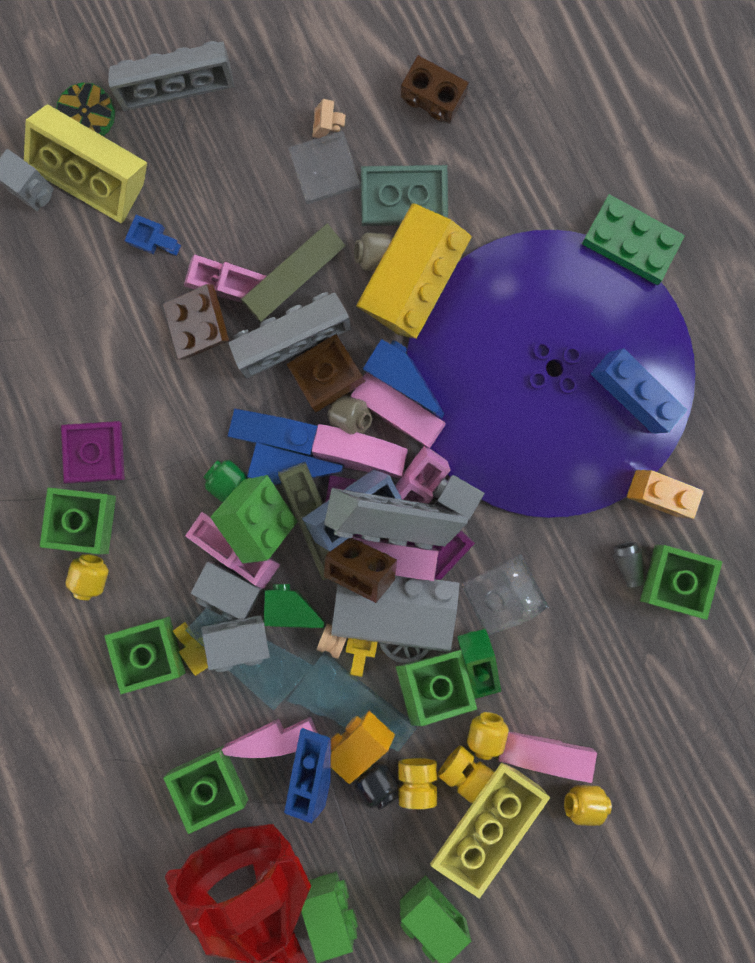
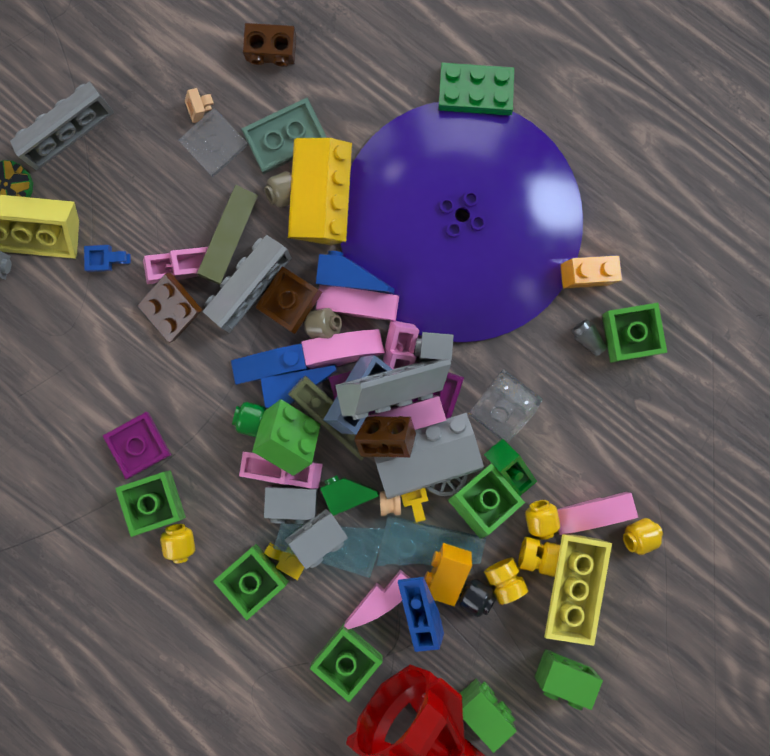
camera: 25 degrees left, 0 degrees up
(639, 391) = (534, 202): blue brick -> none

